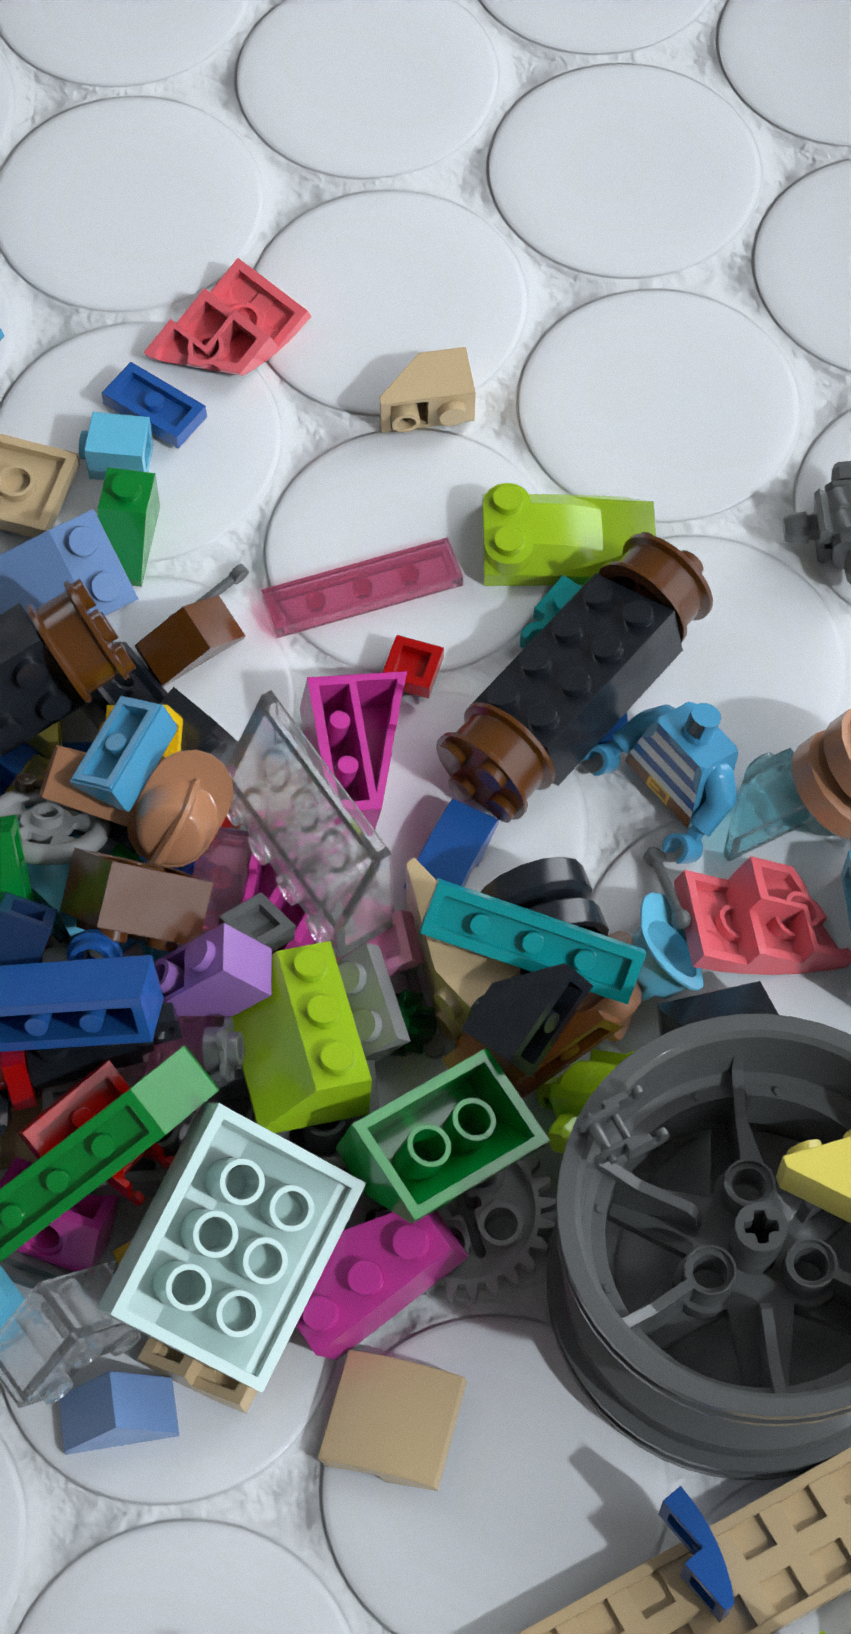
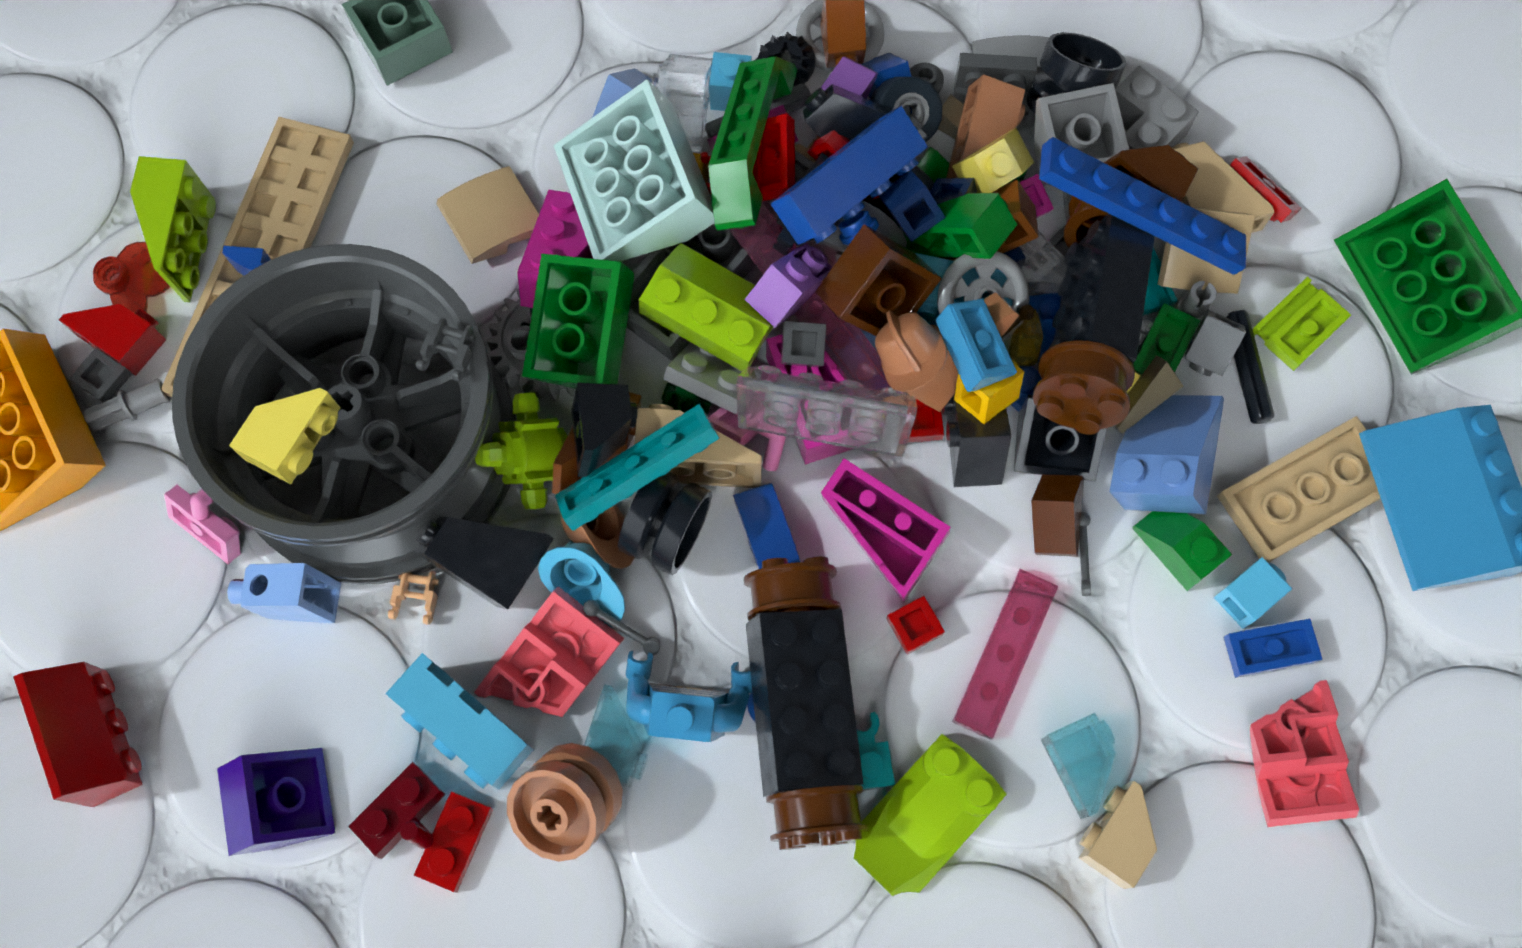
camera: 135 degrees right, 10 degrees up
(223, 1049) = (744, 261): flat silver plate -> none
(396, 461) = (1082, 760): none -> clear light blue slope

